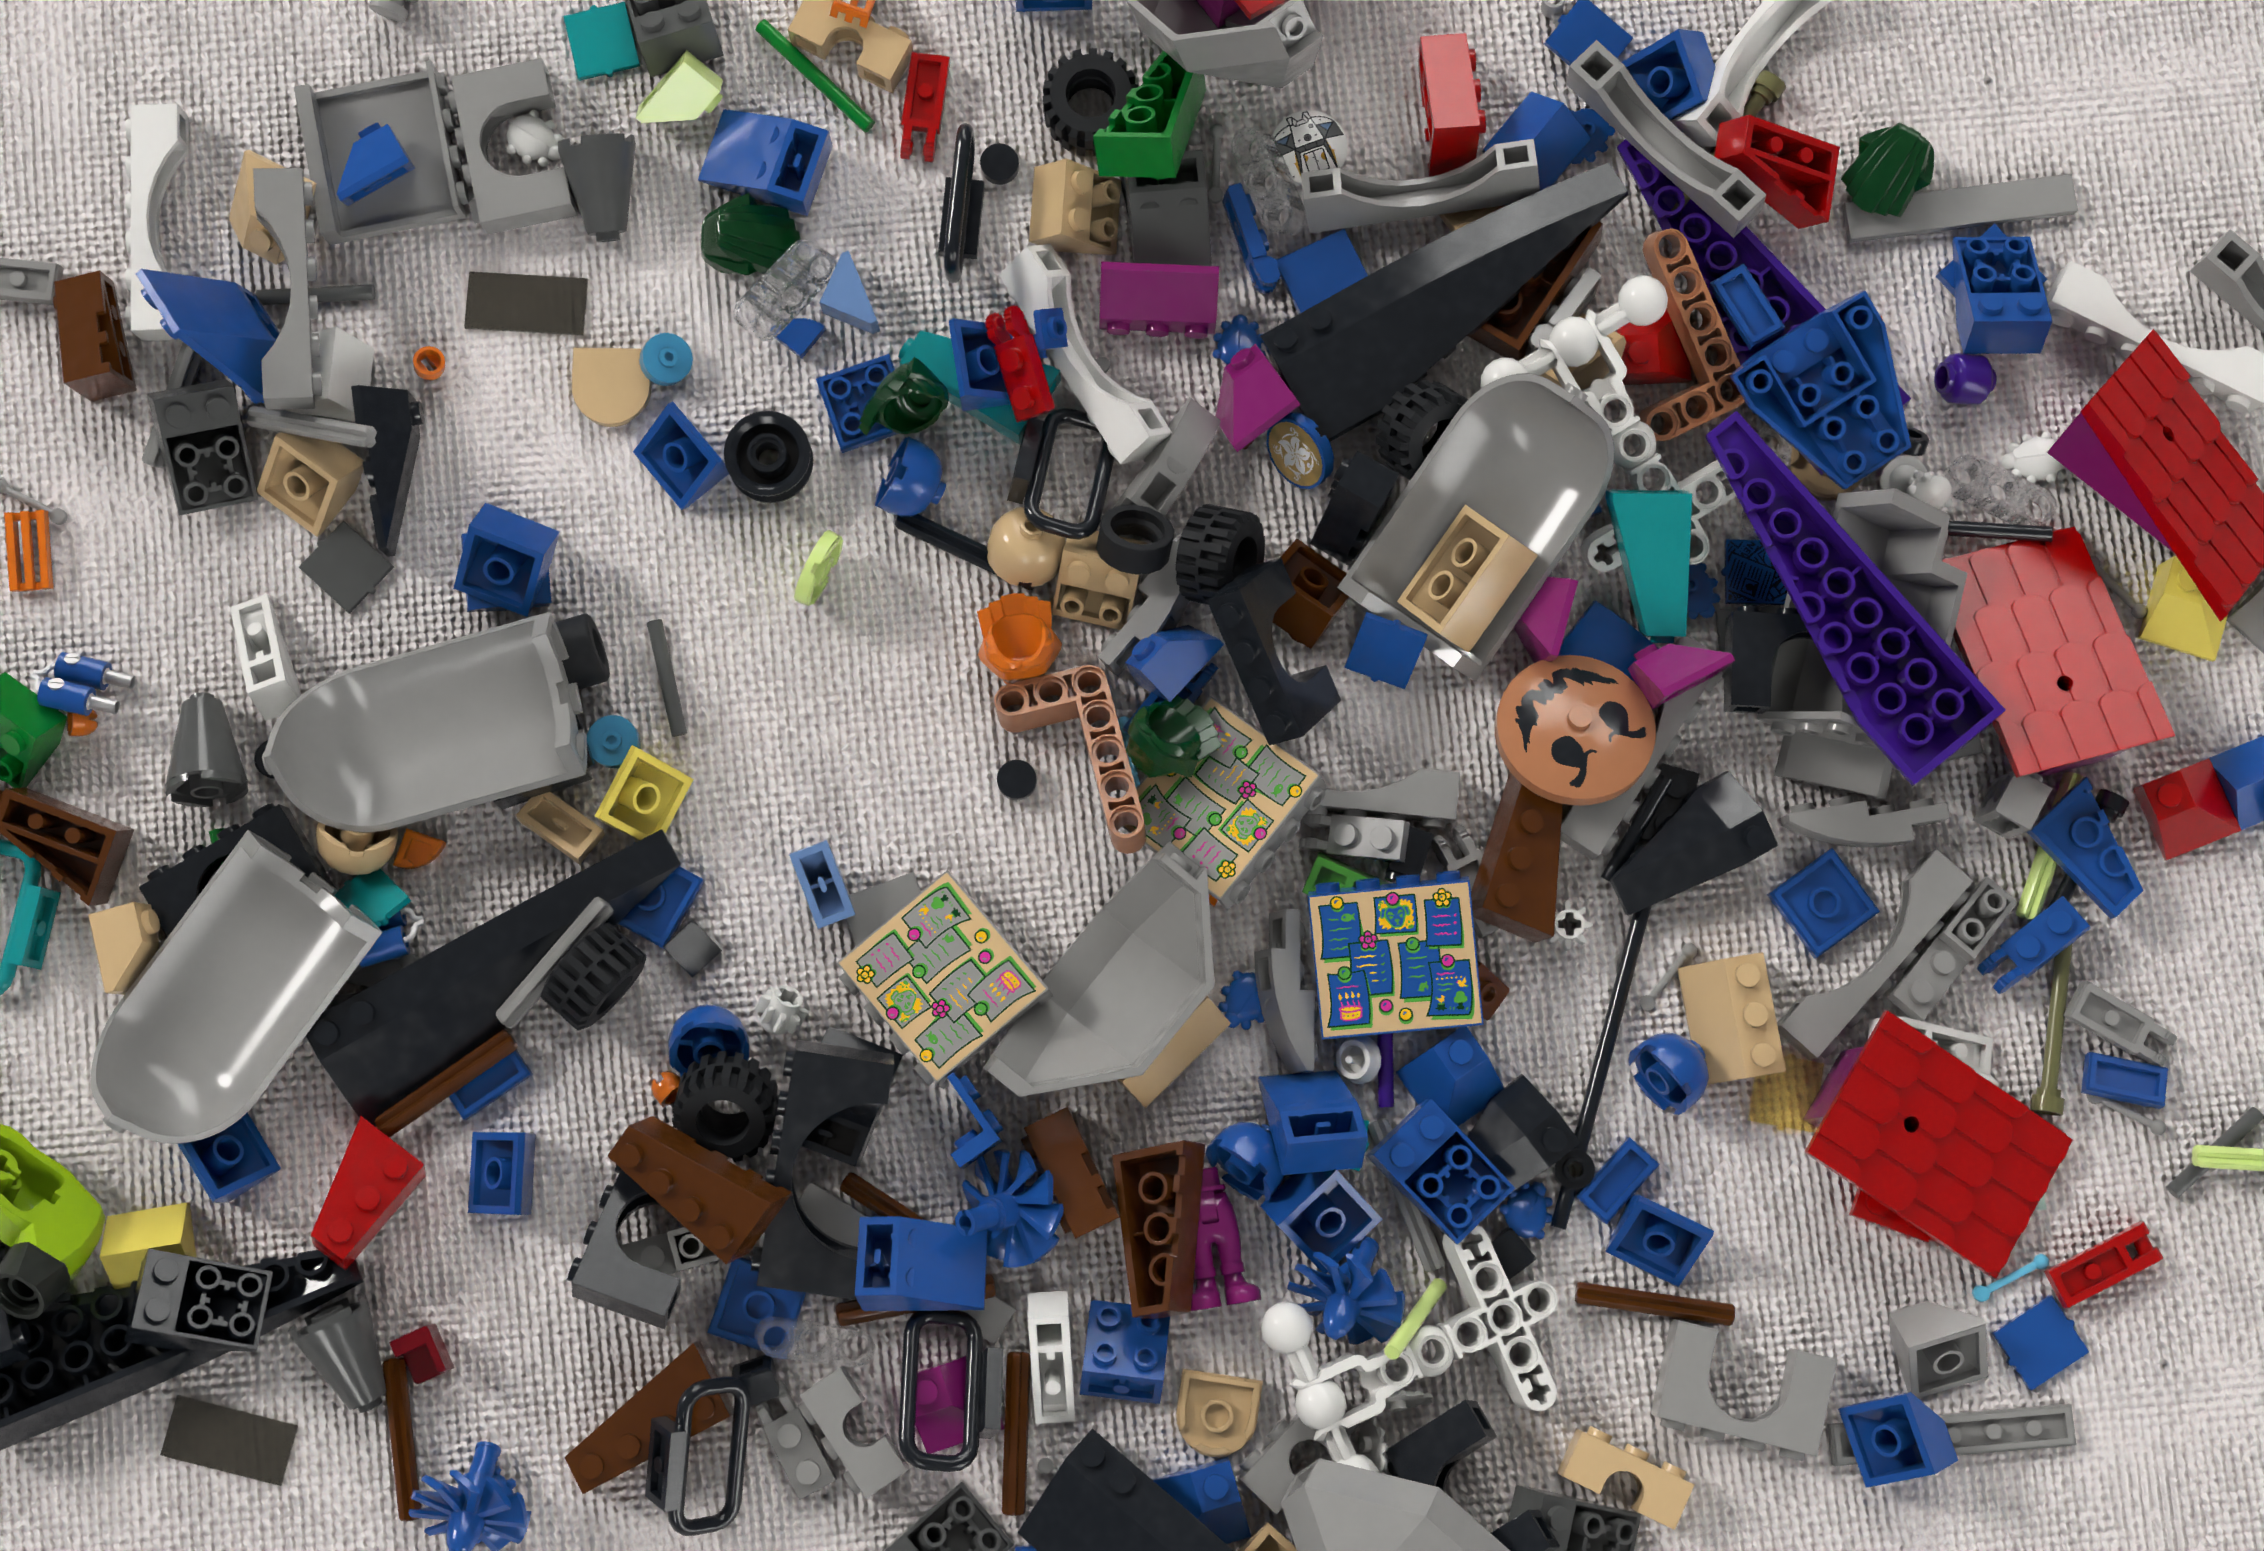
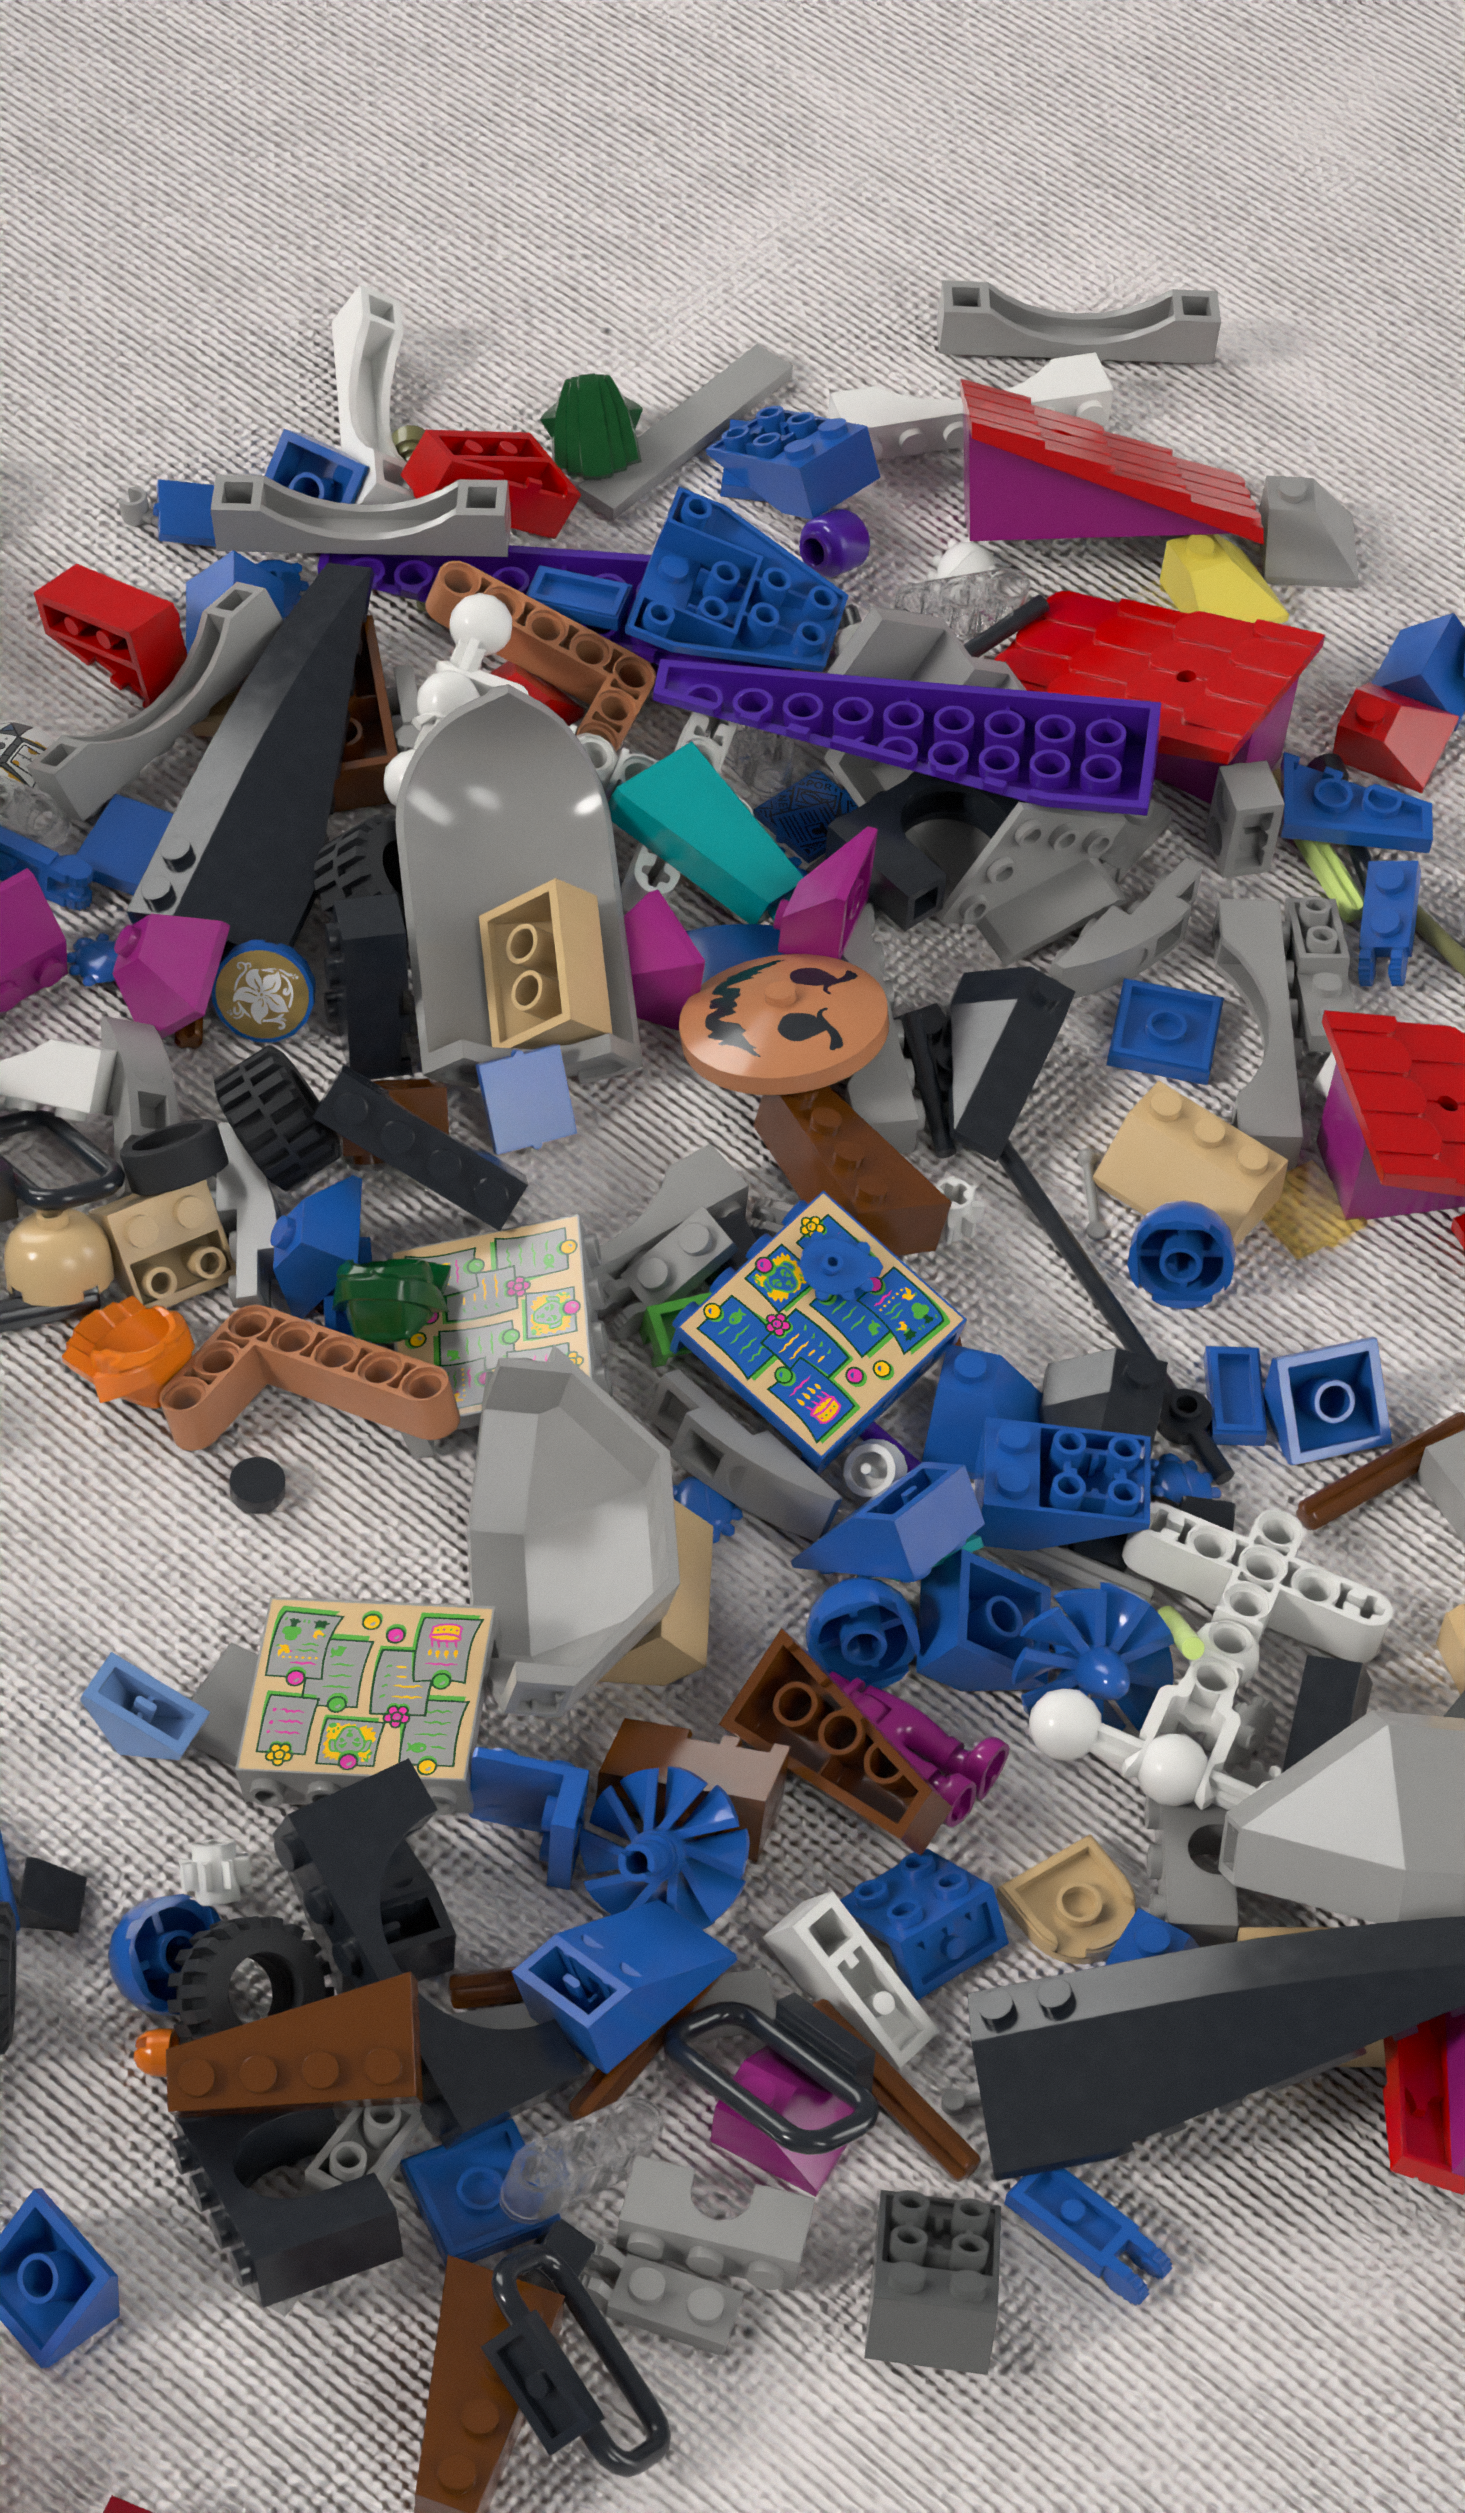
camera: 45 degrees left, 30 degrees down
(1432, 936) = (838, 1266): none -> blue piece

